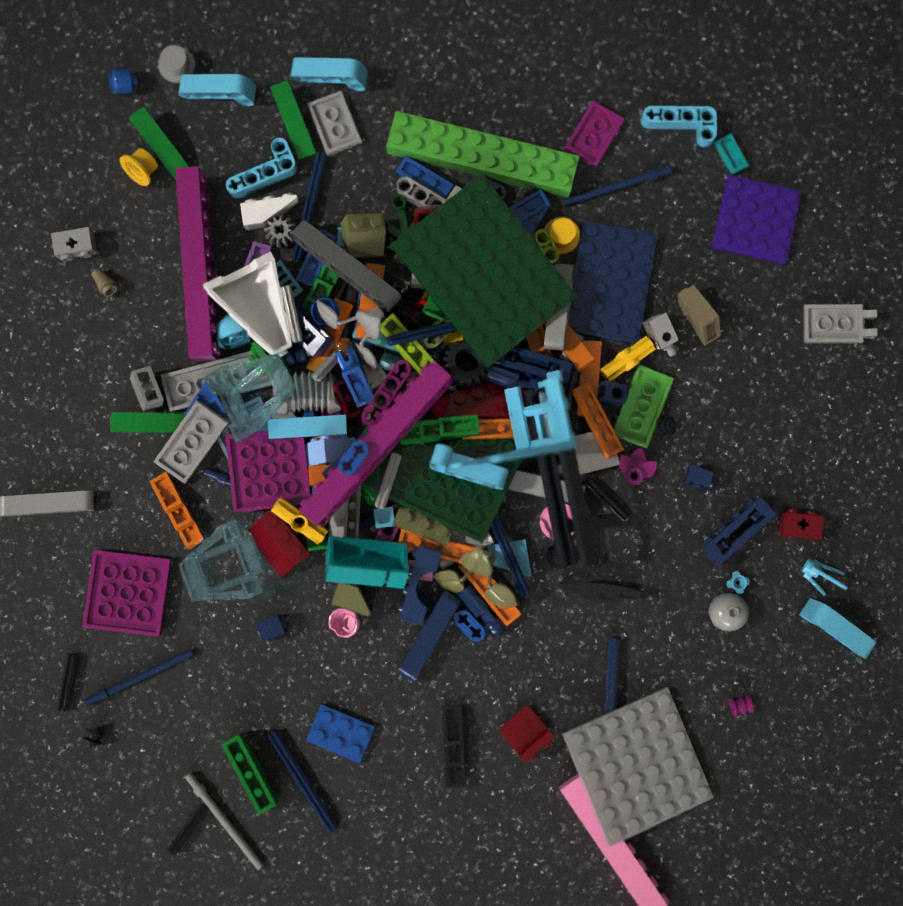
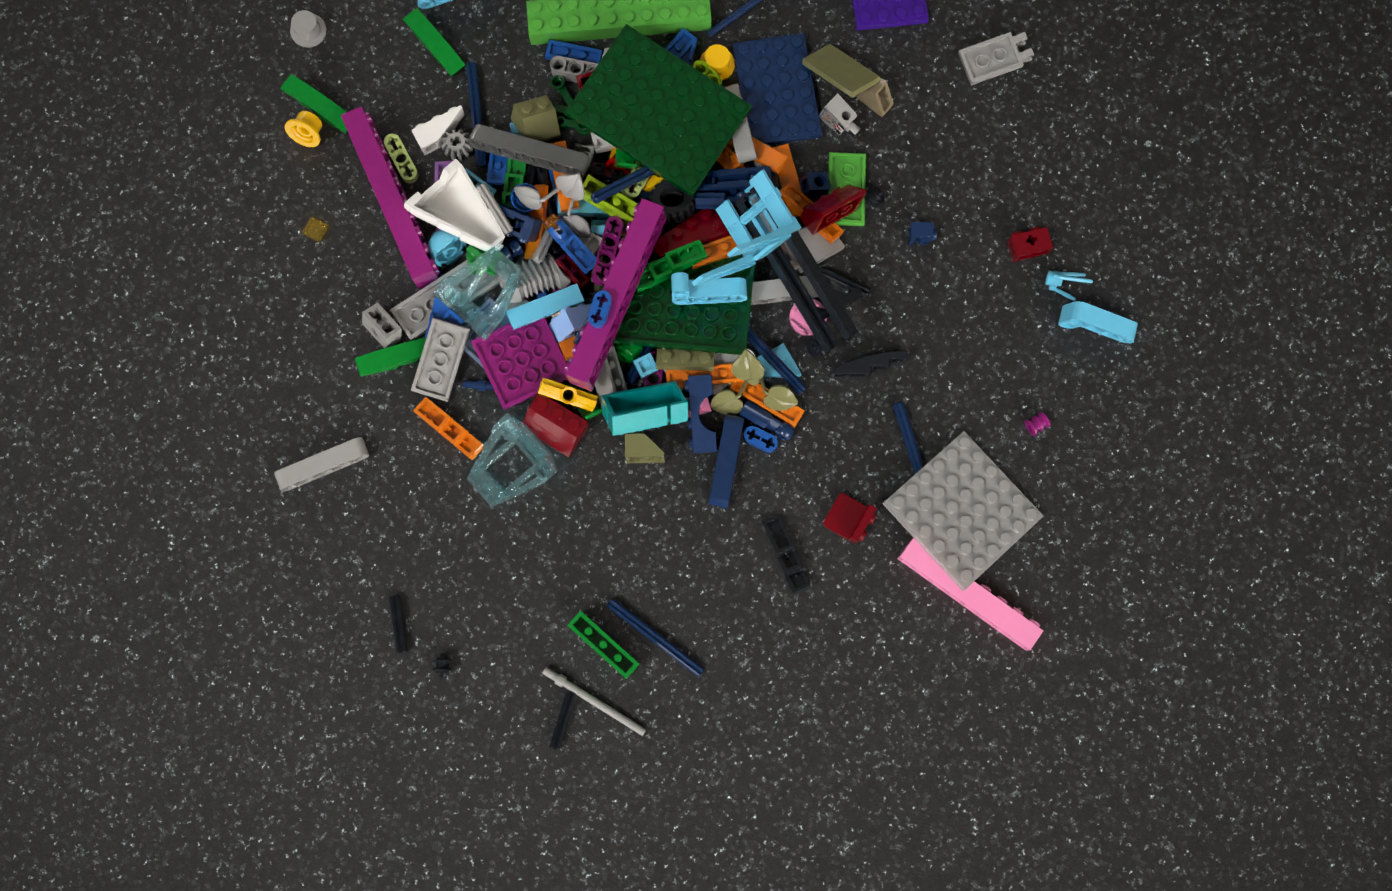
camera: 20 degrees left, 5 degrees down
(65, 240) = (257, 219): light grey brick -> none
(105, 284) = (309, 245): dark tan cone -> none
(105, 693) = (439, 621): dark blue bar -> none
(116, 269) = (315, 229): none -> clear yellow tile
(122, 81) = (262, 59): blue head -> none
(127, 593) = (427, 520): magenta plate -> none
(218, 87) = (353, 34): medium azure beam -> none
(225, 212) = (394, 153): none -> yellowish green beam
(260, 172) = (419, 97): medium azure beam -> none
(272, 627) = (576, 504): dark blue brick -> none
(334, 123) = (473, 33): light grey tile -> none
(340, 733) = (675, 580): blue plate -> none
(344, 622) = (642, 475): bright pink hair -> none
(388, 481) = (638, 328): light grey axle -> none
(618, 424) = (831, 208): none -> dark red slope
(627, 359) = (817, 150): yellow piece -> none
(637, 464) = (861, 242): magenta plate -> none
(679, 289) = (841, 70): none -> olive tile
(728, 612) = (993, 344): light grey cylinder -> none
(744, 581) = (992, 310): medium azure plate -> none
(760, 509) = (959, 293): dark blue brick -> none

